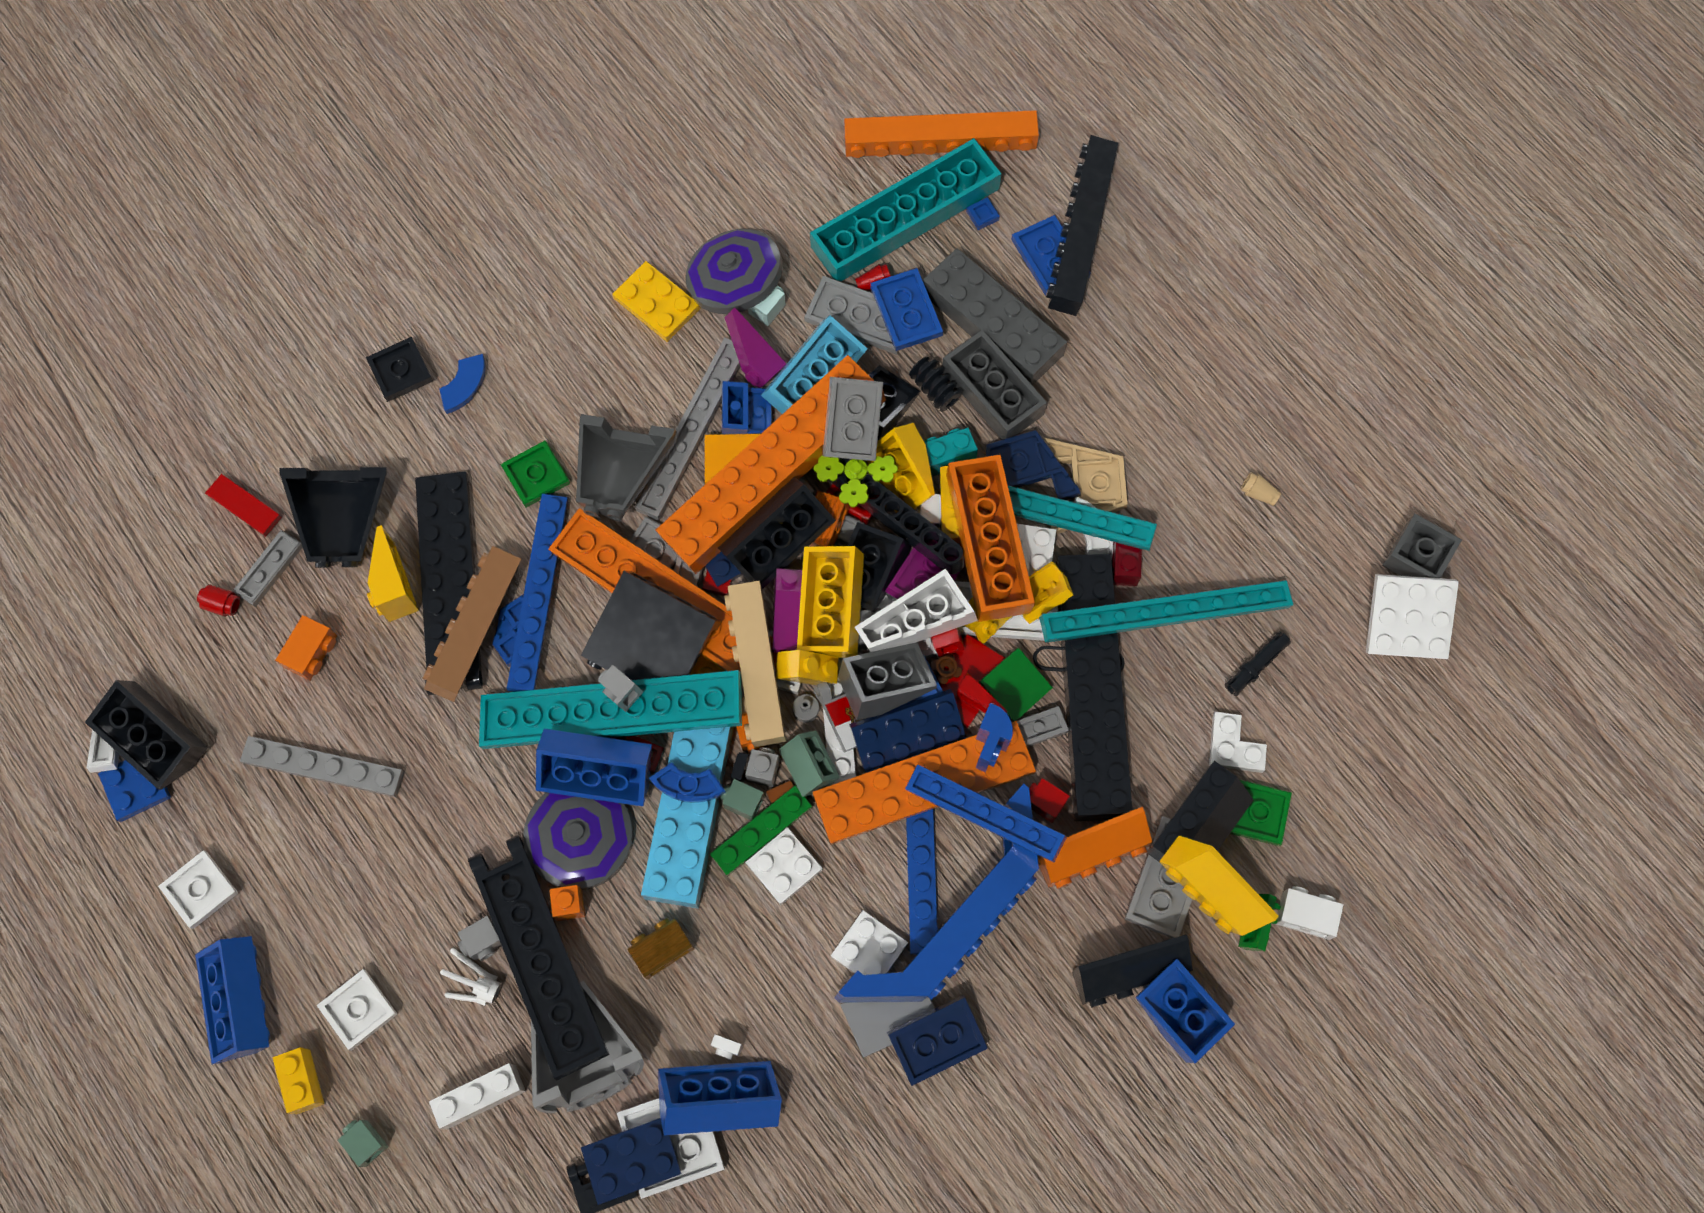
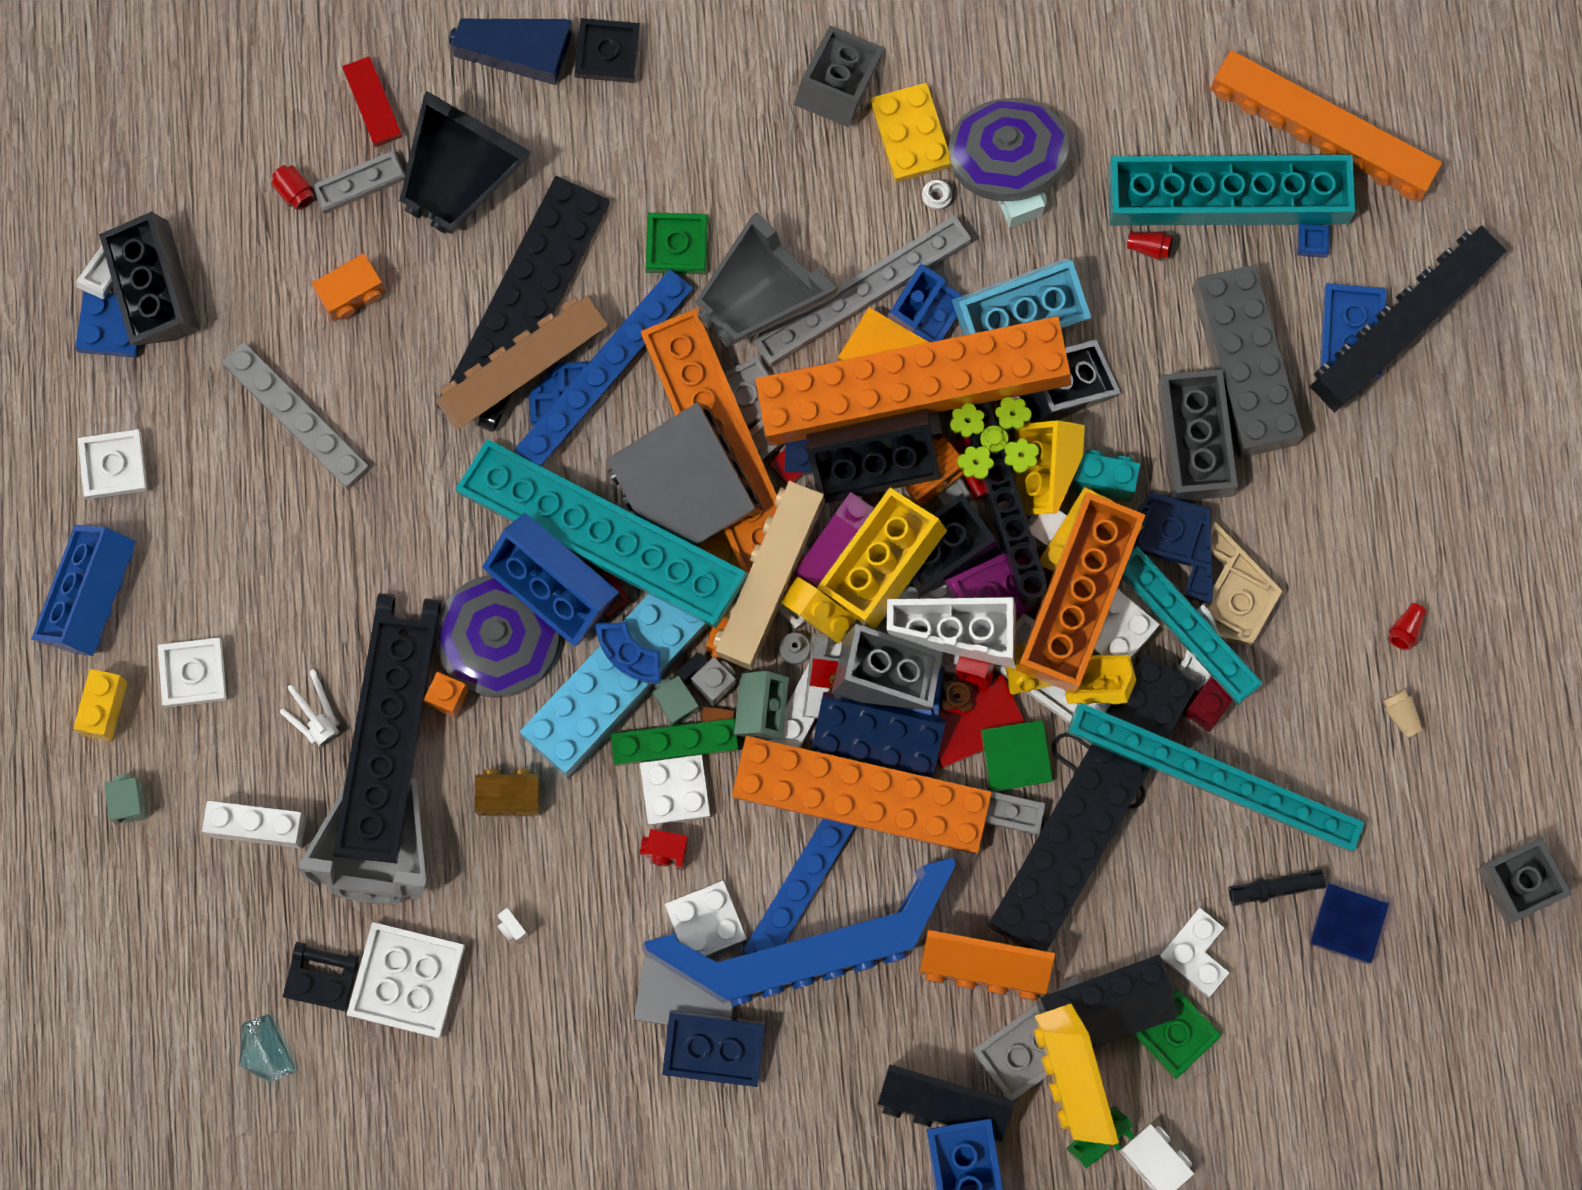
camera: 30 degrees right, 5 degrees up
(328, 404) = (514, 45): none -> dark blue slope
(388, 580) = (466, 267): yellow slope -> none
(465, 384) = (662, 106): blue tile -> none
(479, 939) = (342, 678): light grey brick -> none
(580, 292) = (838, 76): none -> dark grey slope
(619, 688) = (621, 517): light grey brick -> none
(630, 1161) = (358, 974): dark blue plate -> none
(702, 325) = (937, 186): none -> white plate
(718, 1097) = (474, 968): blue slope -> none
(754, 354) = (972, 251): magenta slope -> none
(804, 913) = (664, 848): none -> red brick
(852, 419) = (1019, 386): light grey tile -> none
(853, 310) = (1111, 274): light grey plate -> none
(906, 309) = (1159, 299): blue plate -> none
(934, 384) = (1138, 396): black piece -> none
(975, 695) = (968, 742): red slope -> none
(986, 813) = (896, 863): blue plate -> none
(996, 733) = (957, 790): blue brick -> none
(1047, 799) = (971, 887): red brick -> none
(1223, 430) = (1406, 629): none -> red cone
(1324, 658) = (1348, 924): none -> clear blue plate
(1412, 616) = (1466, 939): white plate -> none

